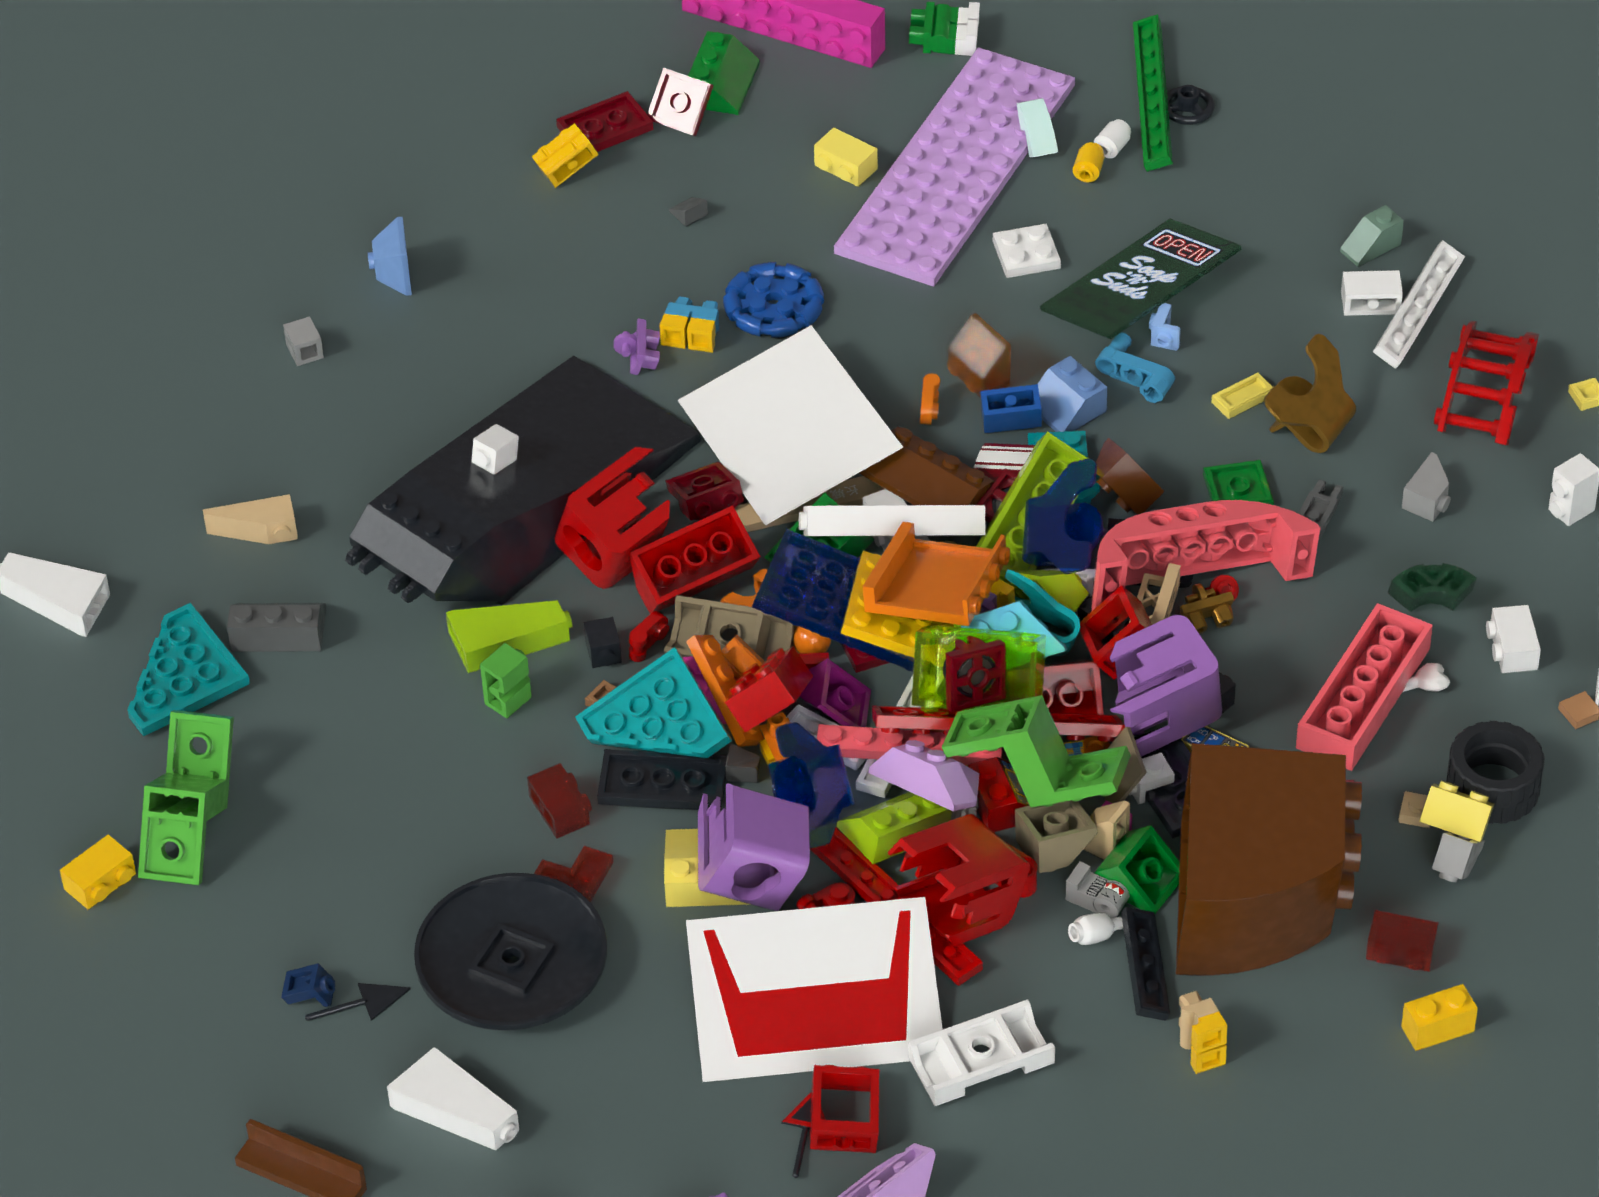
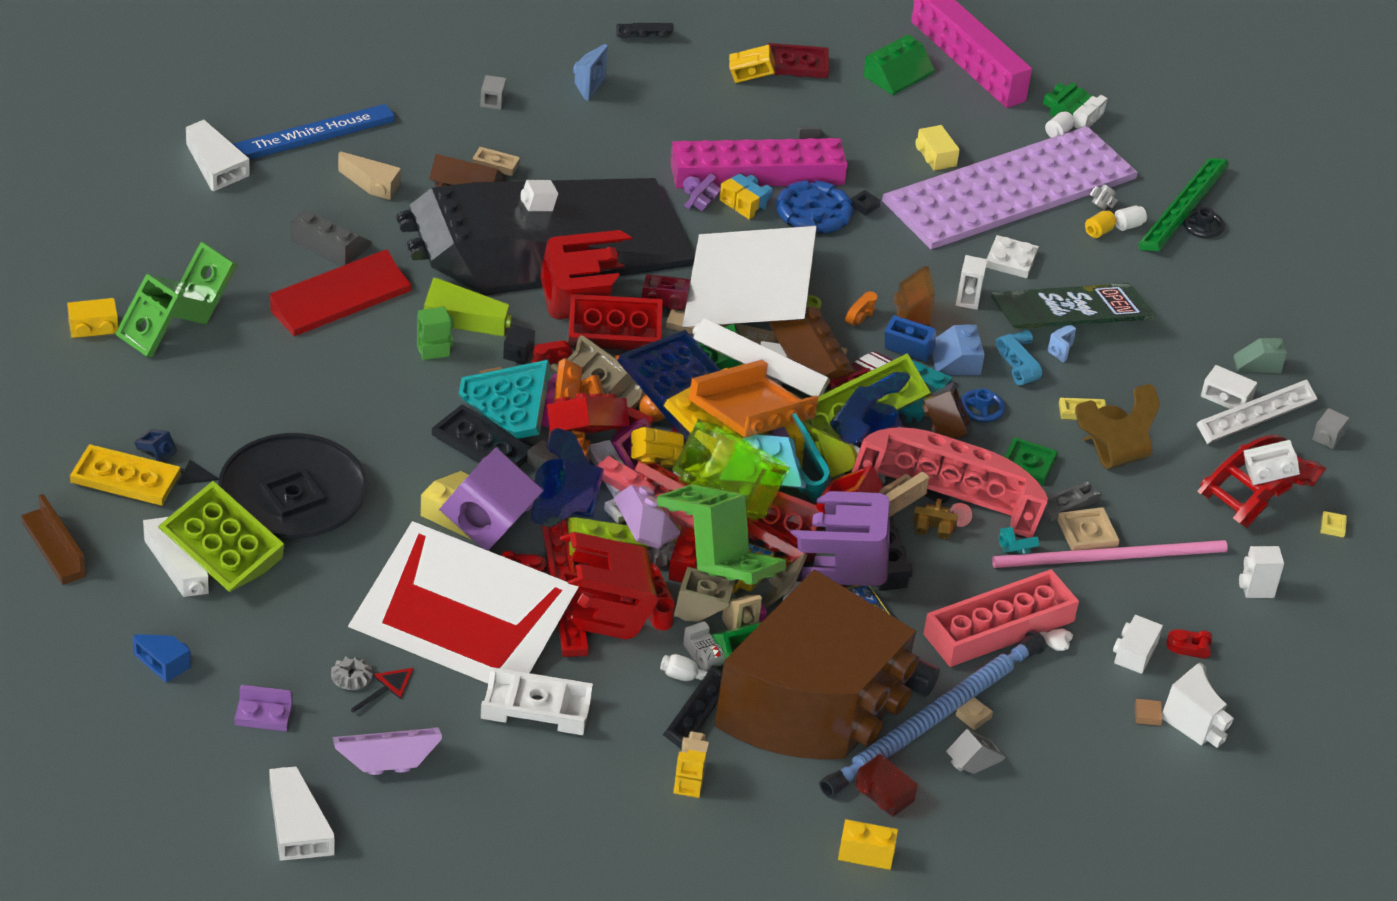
camera: 25 degrees right, 5 degrees down
(141, 497) = (315, 131): none -> blue tile
(184, 671) = (253, 235): teal plate -> none
(307, 1042) = (125, 474): none -> yellow plate
(349, 688) = (338, 293): none -> red arch
(366, 466) = (452, 171): none -> reddish brown slope
(380, 427) = (504, 162): none -> tan plate
(401, 174) = (644, 29): none -> black hinge
(498, 1056) = (223, 537): none -> lime slope
(559, 800) = (407, 418): clear red brick -> none
(585, 873) = (381, 470): clear red plate -> none
(679, 101) = (854, 67): tile -> none
(683, 268) = (768, 160): none -> dark pink brick
(749, 1143) = (359, 678): none -> light grey gear
(824, 266) = (865, 202): none -> black plate
(829, 1133) = (415, 709): red window -> none
(862, 685) = (656, 446): none -> yellow brick
(950, 61) = (1060, 124): none -> white brick
(972, 675) = (724, 466): dark red piece -> none
(1021, 306) = (971, 282): none -> white brick
(1038, 127) = (1081, 186): light aqua slope -> none
(1068, 127) = (1103, 197): none -> light grey gear
(1140, 444) = (982, 400): none -> blue piece
(1308, 592) = (1009, 544): none -> teal bracket
(1362, 535) = (1088, 529): none -> tan plate
(1381, 834) = (935, 712): none -> medium blue hose
(1402, 552) = (1109, 554): none -> bright pink piece
(1427, 490) = (1158, 523): light grey slope -> none
(1432, 584) = (1106, 580): clear green brick -> none
(1457, 811) = (992, 723): light yellow brick -> none
(1499, 745) = (1039, 735): black tyre -> none
(1501, 360) = (1271, 462): none -> white hinge
(1504, 284) = (1330, 428): none -> light grey brick
(1549, 612) = (1190, 643): none -> red plate

